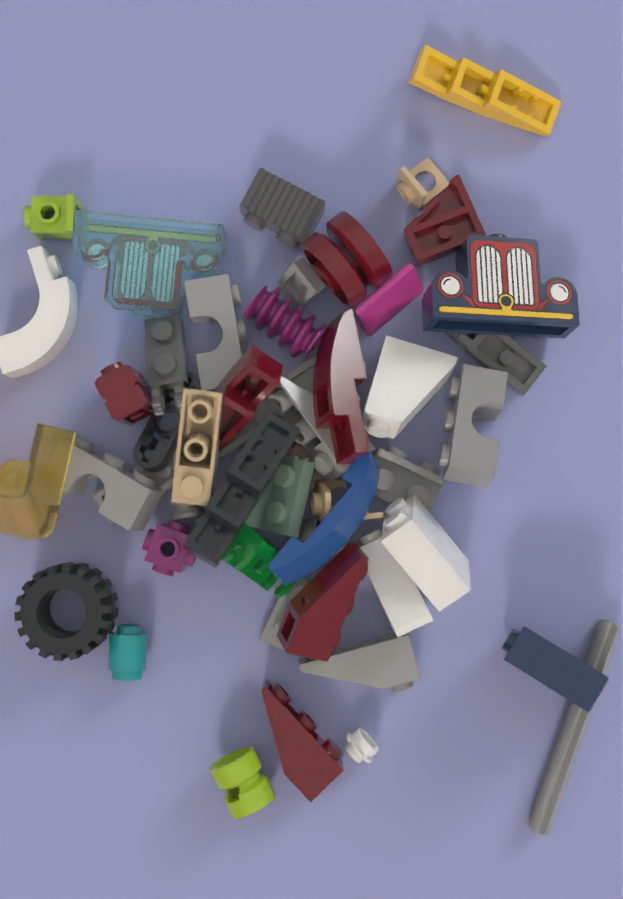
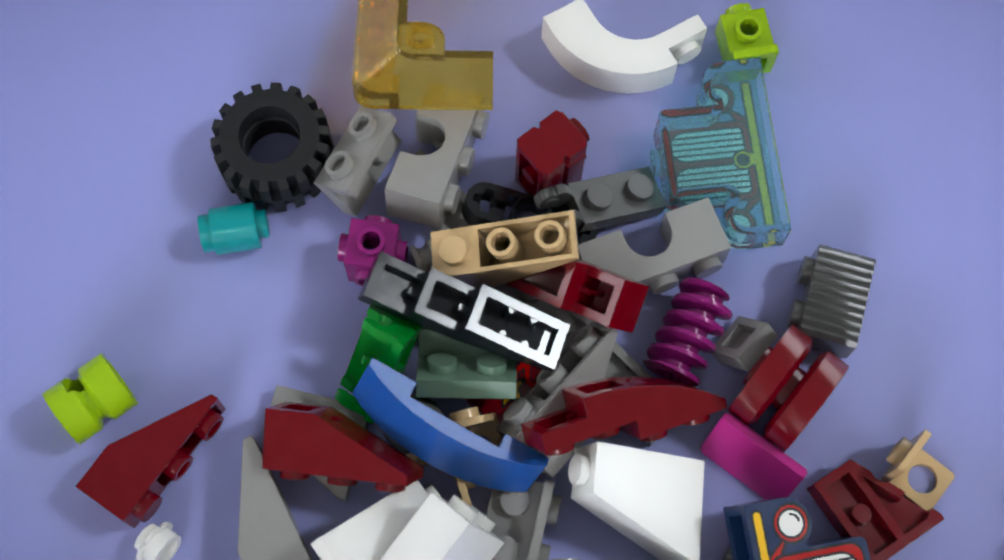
camera: 80 degrees right, 15 degrees down
(91, 544) = (358, 159): none -> light grey bracket

